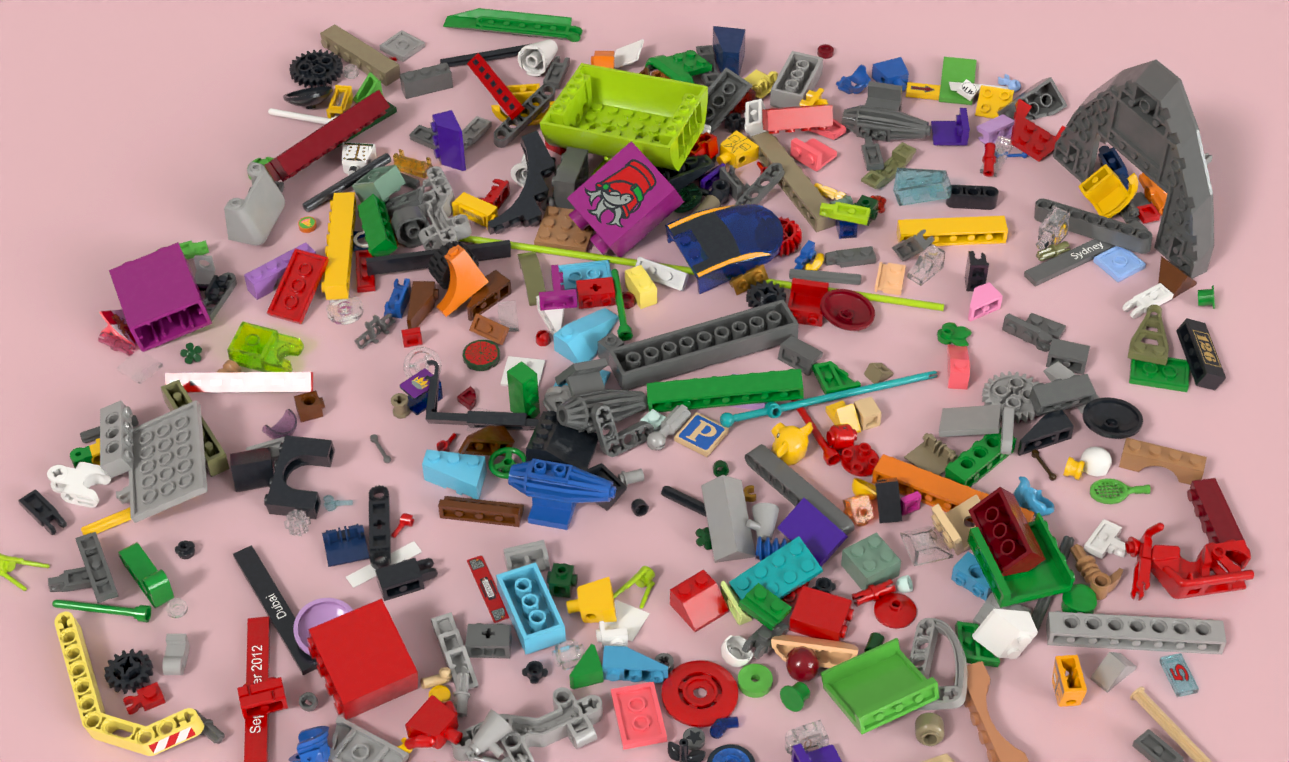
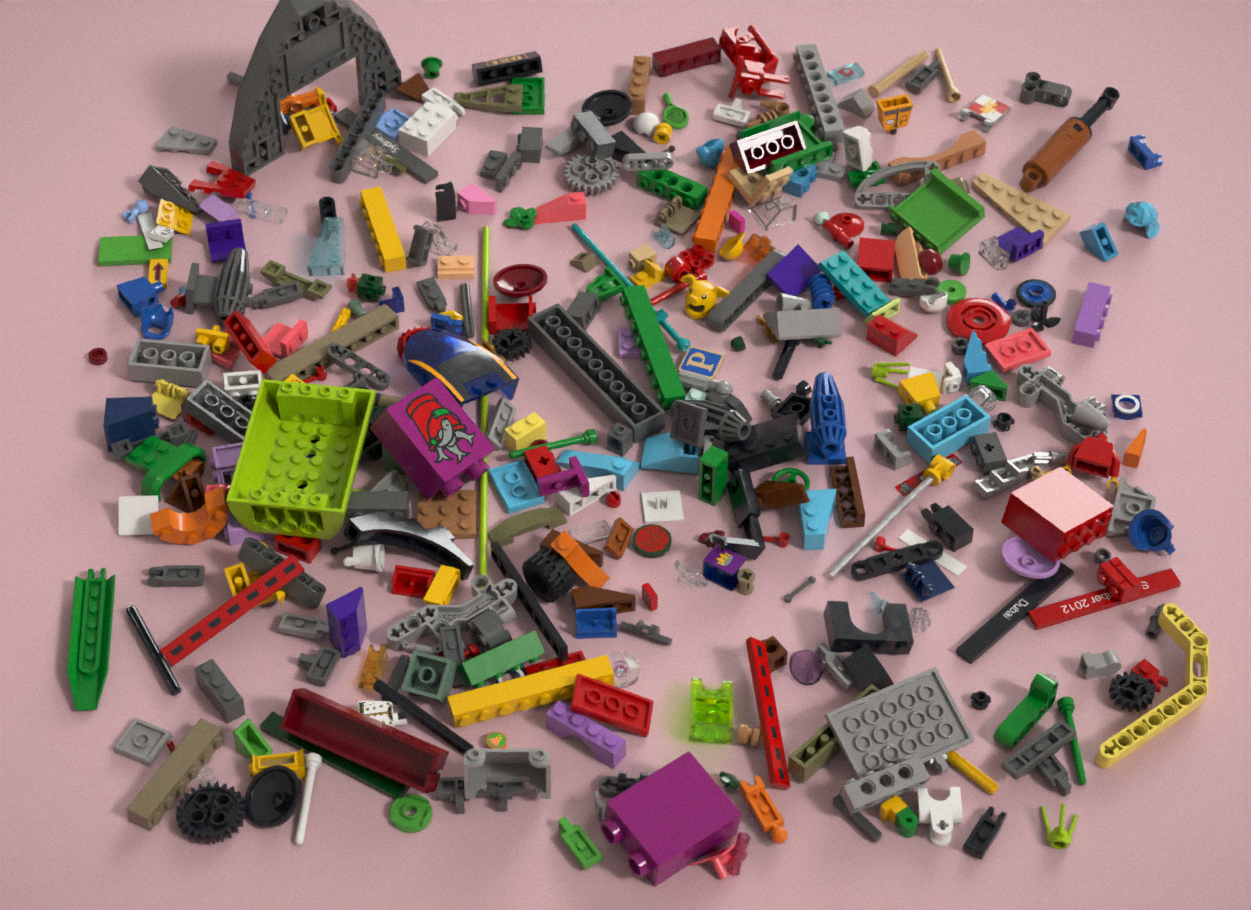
camera: 105 degrees left, 0 degrees up
(147, 365) = (763, 809): none -> orange plate
(481, 591) = (939, 468): none -> flat silver piece
(537, 57) = (156, 591): white cone -> none
(764, 606) = (890, 283): green plate -> none
(846, 212) = (390, 289): lime hinge -> none
(870, 561) = (812, 235): sand green brick -> none
(888, 500) = (744, 222): black hinge -> none
(902, 439) = (665, 237): none -> clear light blue piece
(970, 420) = (633, 192): light grey tile -> none
(989, 159) = (274, 209): red pin -> none
(1102, 280) = (427, 129): none -> white brick

